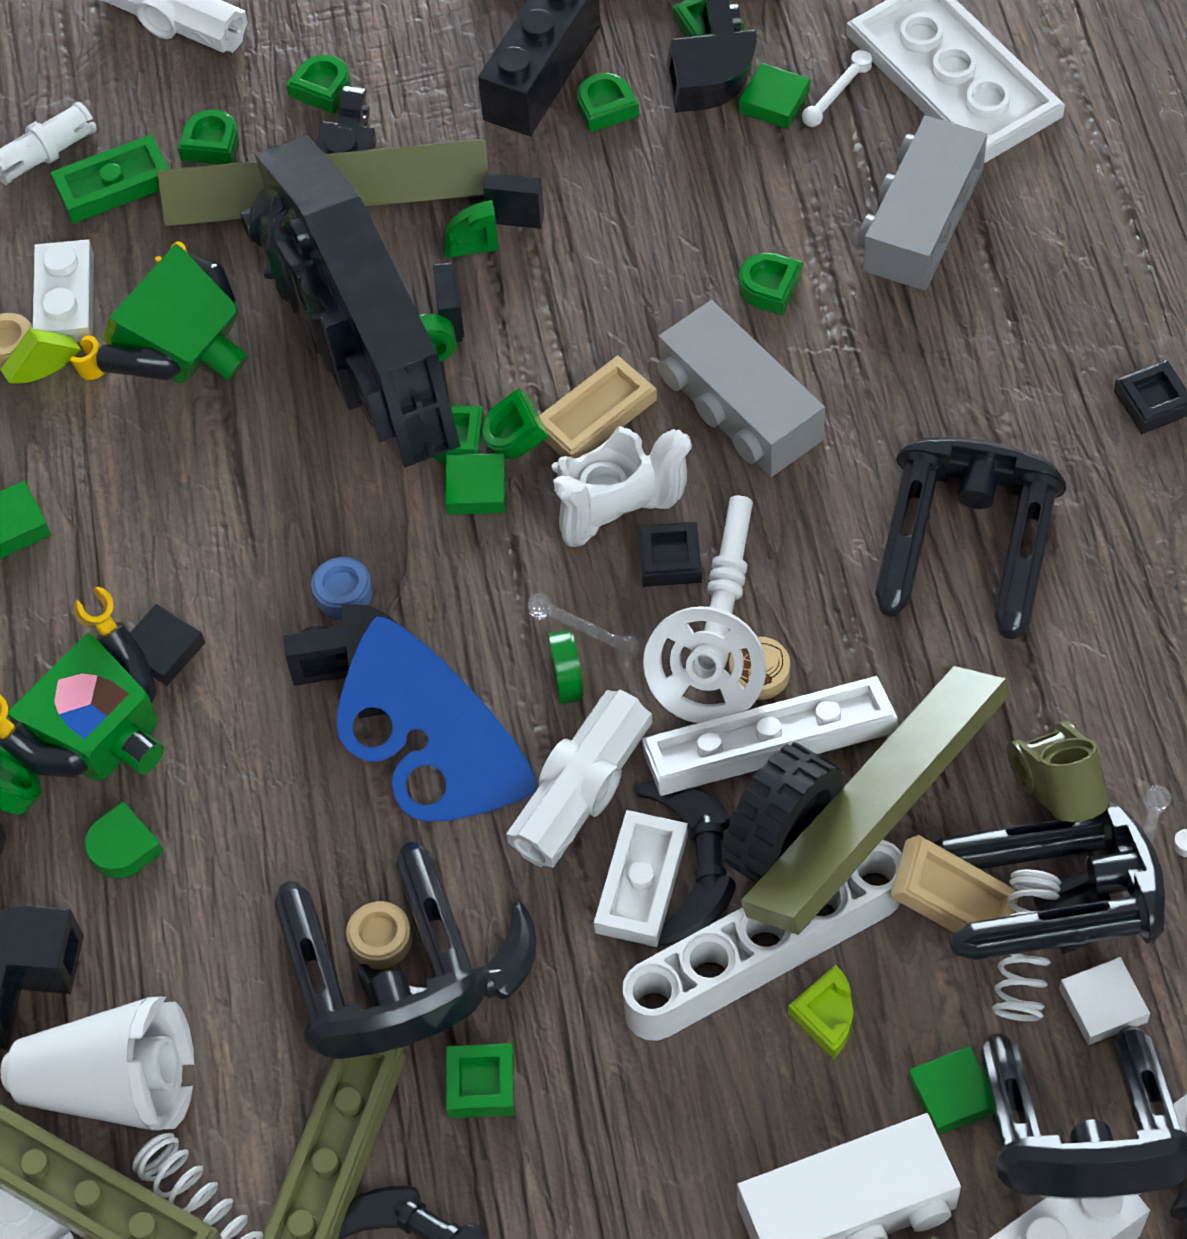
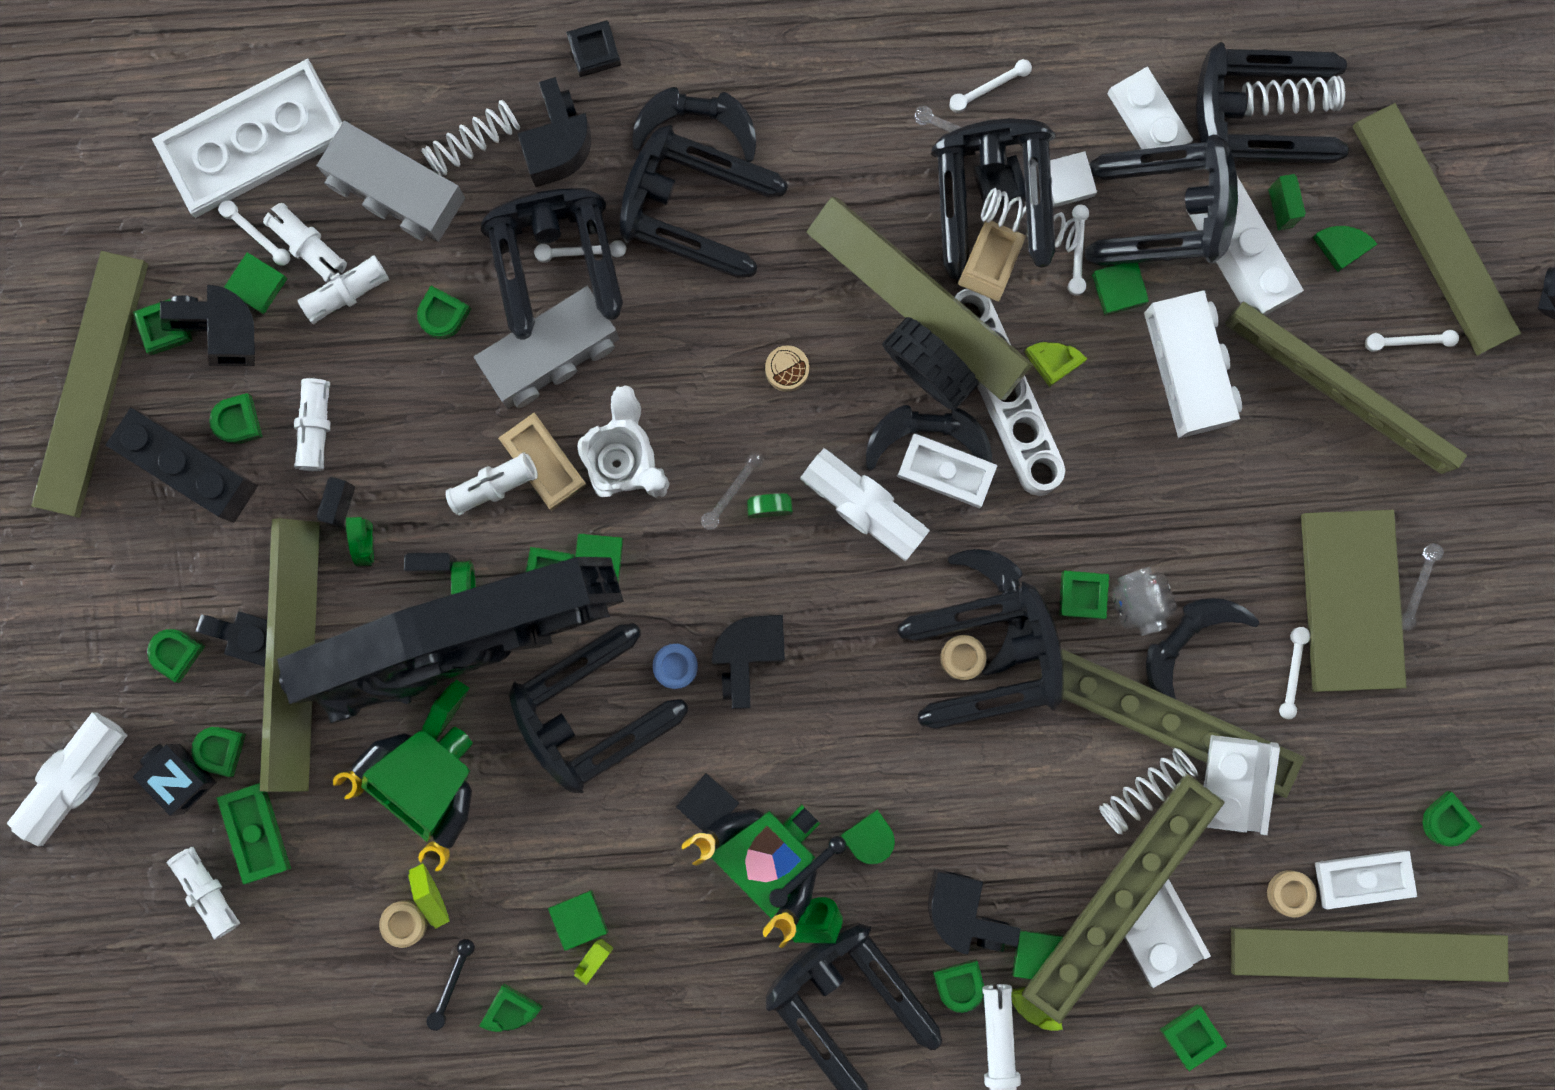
camera: 90 degrees left, 25 degrees up
(35, 716) = (778, 896): none -> black hinge
(64, 288) = (361, 877): white plate -> none
(108, 1066) = (1055, 850): white cone -> none
(170, 94) = (173, 778): none -> black brick
(238, 447) = (546, 737): none -> black piece
(269, 343) = (445, 708): none -> green tile
(464, 737) = (792, 608): blue piece -> none
(479, 1164) = (1143, 601): none -> clear head
(513, 426) = (554, 524): green tile -> none
(556, 350) = (491, 484): none -> white pin
(608, 168) = (312, 424): none -> white pin
(670, 554) = (680, 420): black tile -> none
(711, 647) = (774, 401): white dish -> none
(749, 738) = (845, 368): white tile -> none
(781, 176) = (343, 289): none -> white pin
(832, 133) = (304, 242): none -> white pin
(869, 381) = (545, 253): none -> white hinge
(910, 354) = (542, 213): none -> black piece
(947, 1032) = (1077, 284): none -> white hinge
(962, 256) = (440, 168): none -> white piece
(1015, 371) = (558, 147): none -> black brick
(1061, 773) = (902, 174): olive piece -> none
(1107, 549) = (672, 103): none -> black piece

